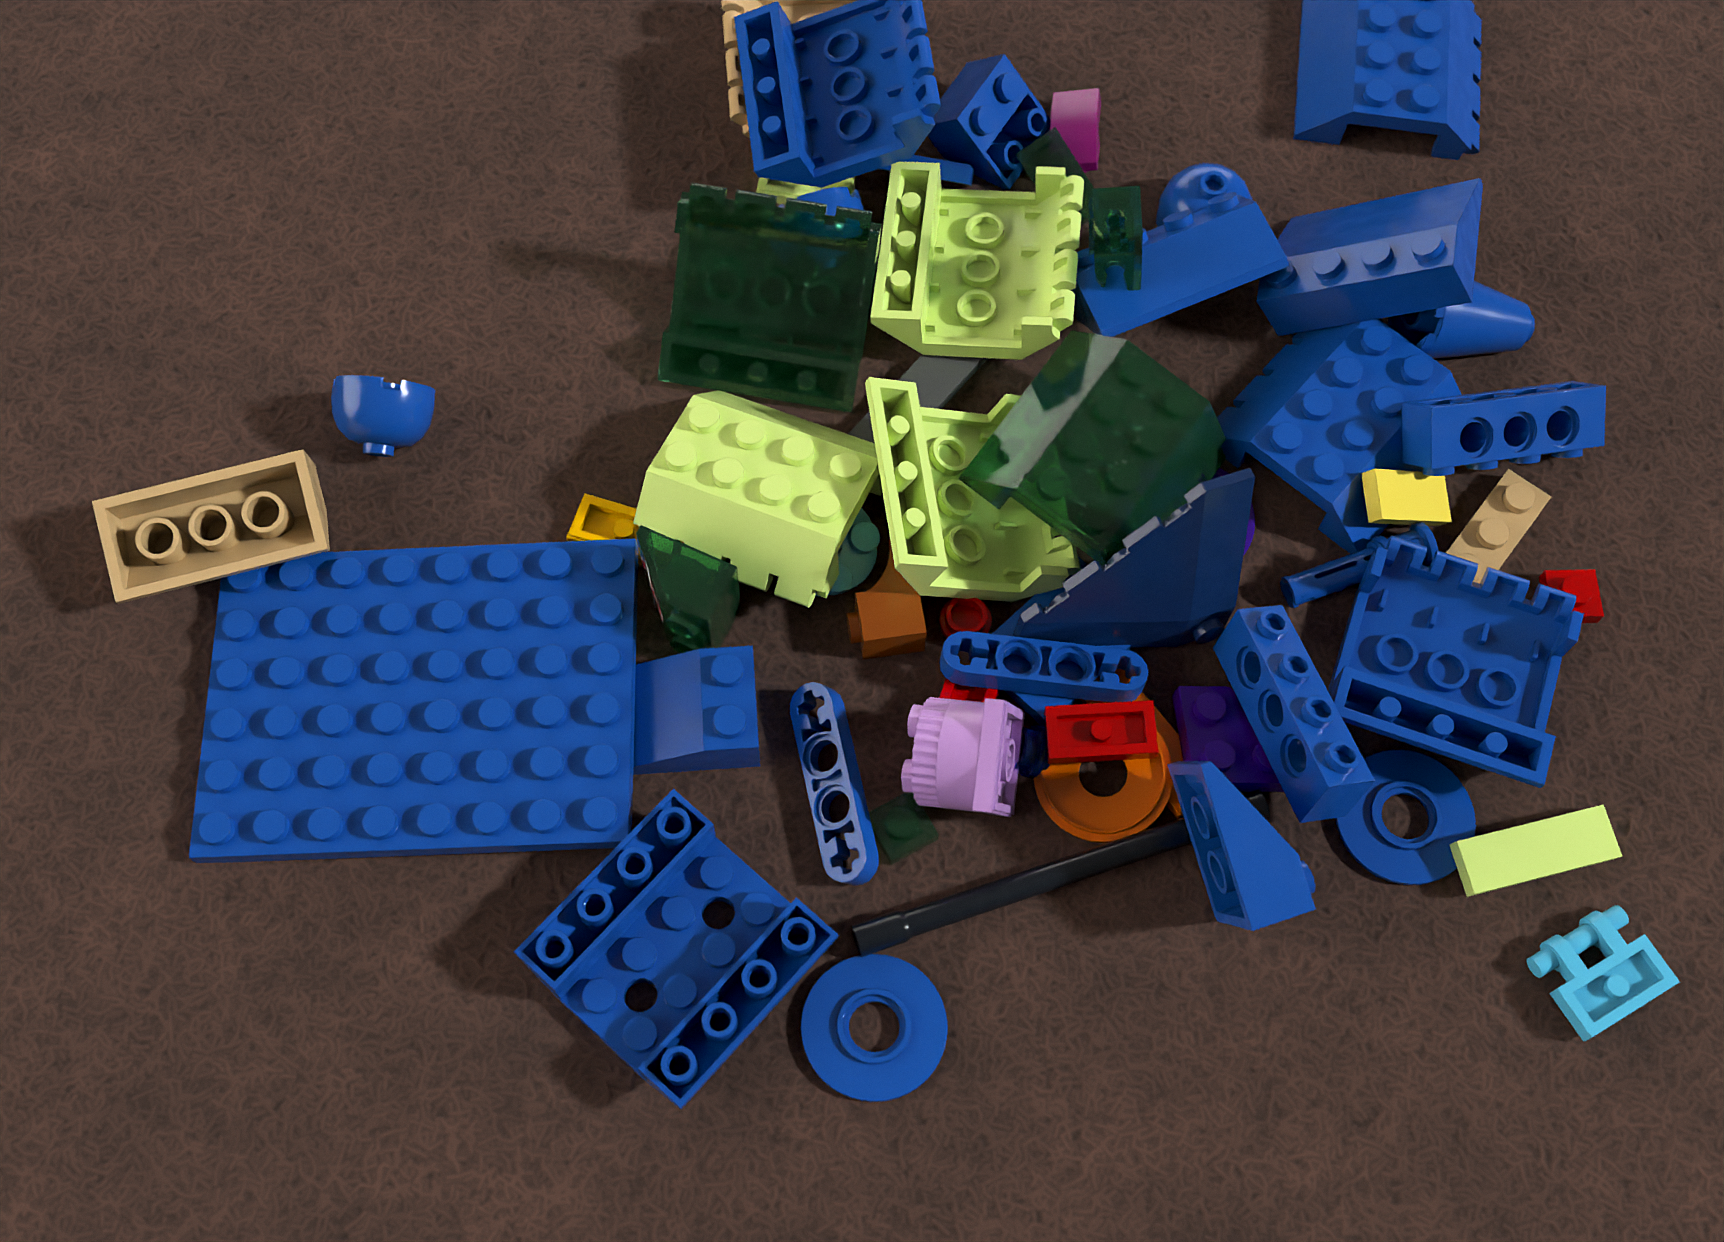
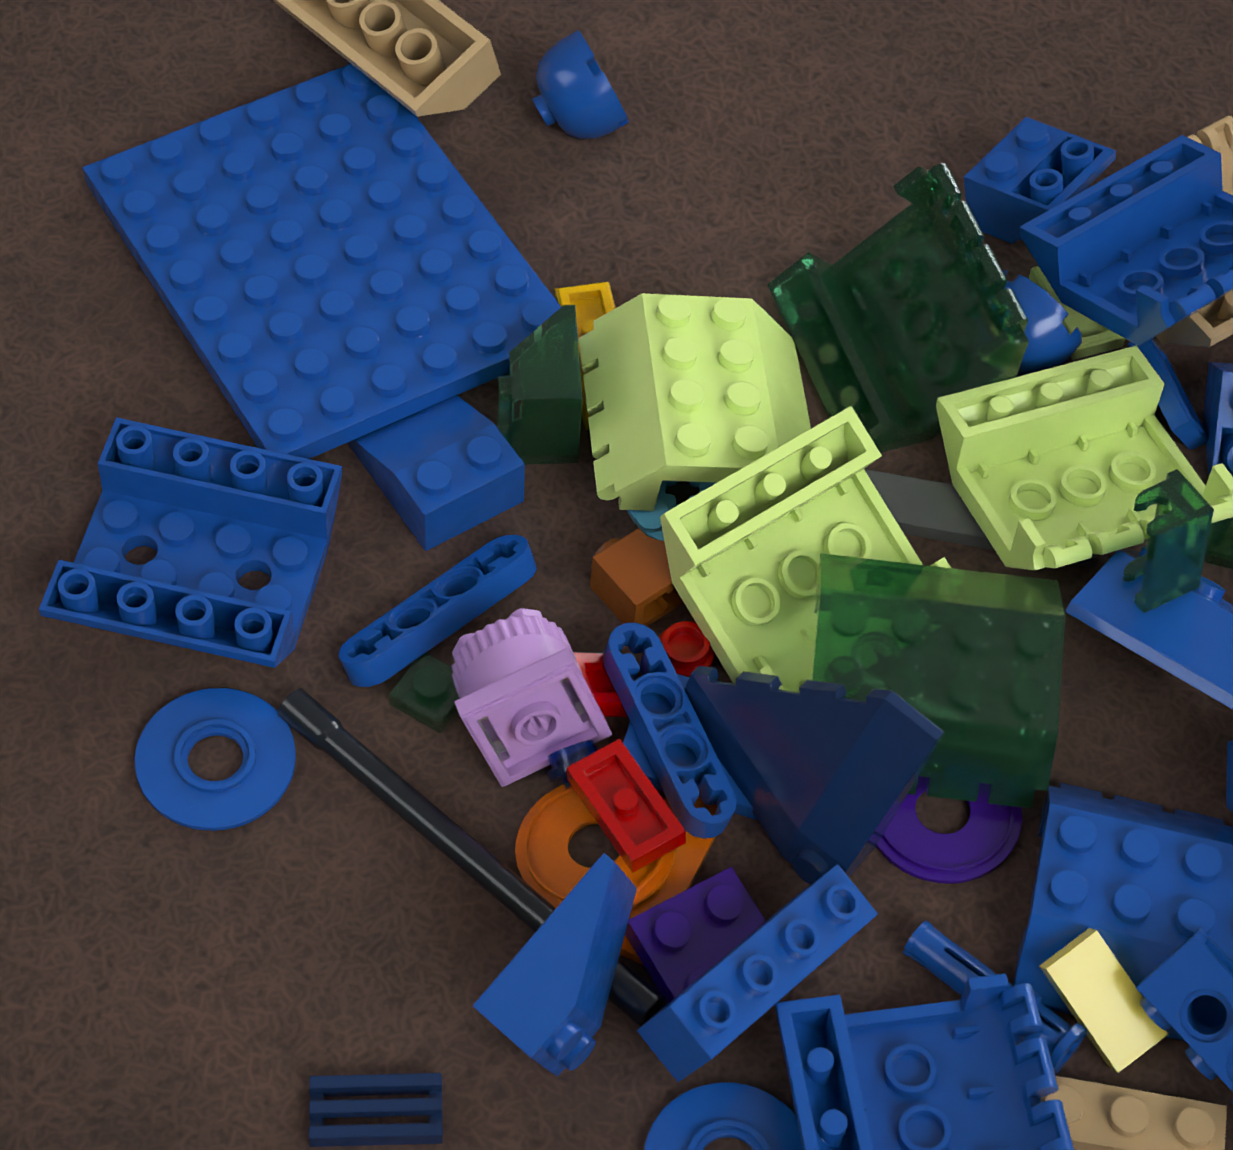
camera: 60 degrees right, 10 degrees down
(694, 135) = (1029, 175): none -> blue slope
(1269, 1006) = (374, 1086): none -> dark blue tile

